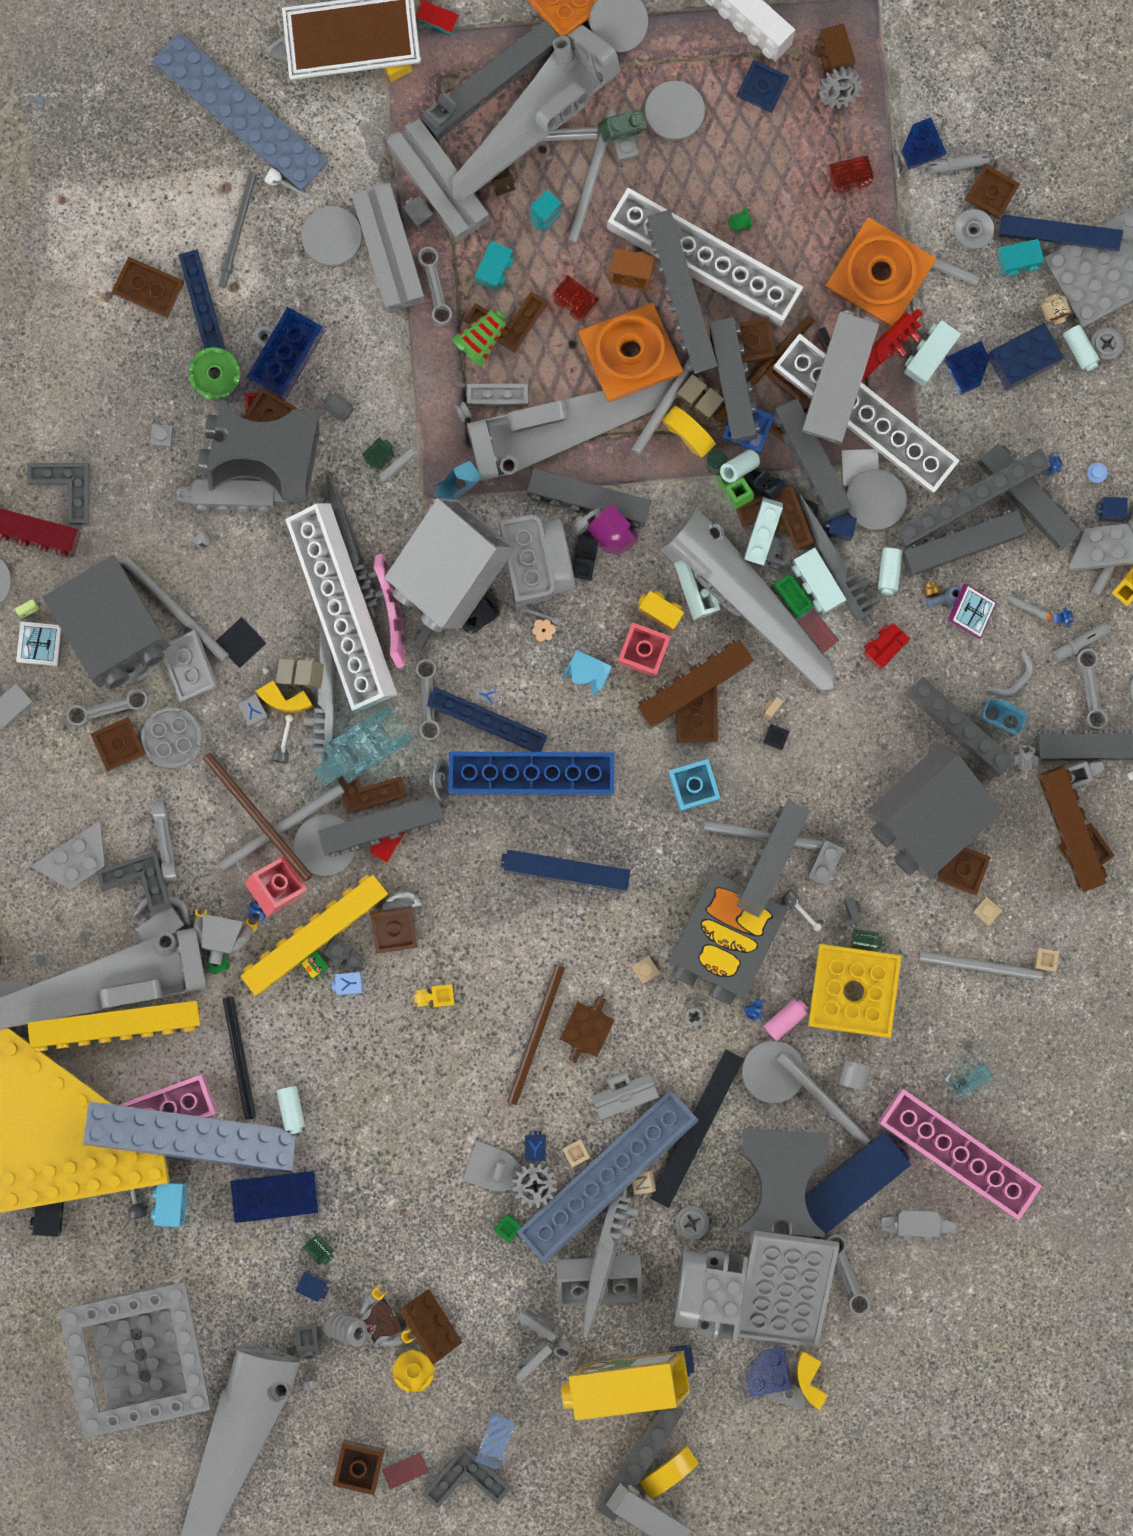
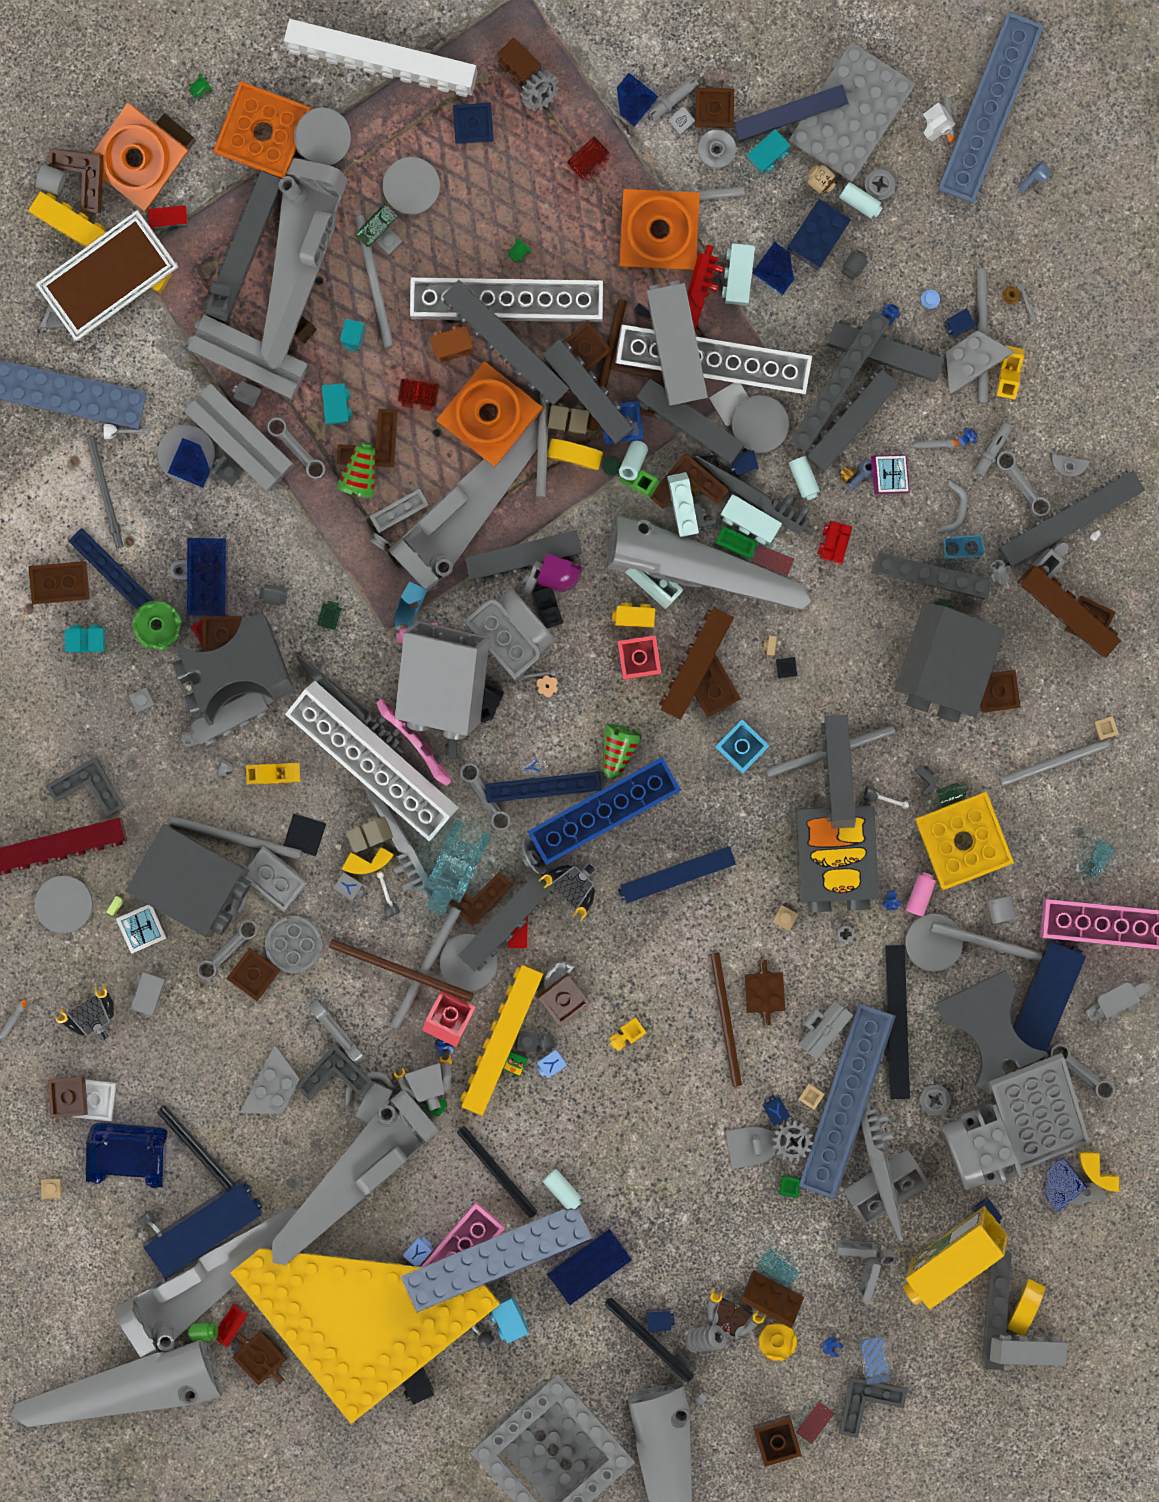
camera: 20 degrees left, 5 degrees up
(113, 1024) = (382, 1202): yellow brick -> none
(122, 1090) = (418, 1251): none -> light blue brick
(141, 352) = (85, 640): none -> teal brick
(243, 569) = (273, 773): none -> yellow brick
(291, 1300) = (649, 1340): none -> black axle
(319, 1250) = (648, 1288): clear green brick -> none
(330, 245) = (190, 463): none -> clear blue plate
(360, 271) = (226, 470): none -> dark grey bracket
(397, 465) = (350, 617): light grey plate -> none
(453, 1301) = (778, 1268): none -> clear light blue slope
(460, 1403) = (829, 1346): none -> blue plate
(463, 828) = (573, 886): none -> torso
(572, 134) = (339, 252): light grey axle -> none
(576, 724) = (618, 748): none -> bright green cone
(588, 669) = (602, 700): medium azure piece -> none
(644, 1183) = (879, 1090): tan tile -> none
(764, 484) = (661, 463): black slope -> none
(826, 862) = (883, 748): light grey plate -> none
(956, 187) = (682, 120): none -> light grey slope
(987, 911) = (1036, 715): tan plate -> none
(1043, 402) = (854, 264): none -> dark grey brick

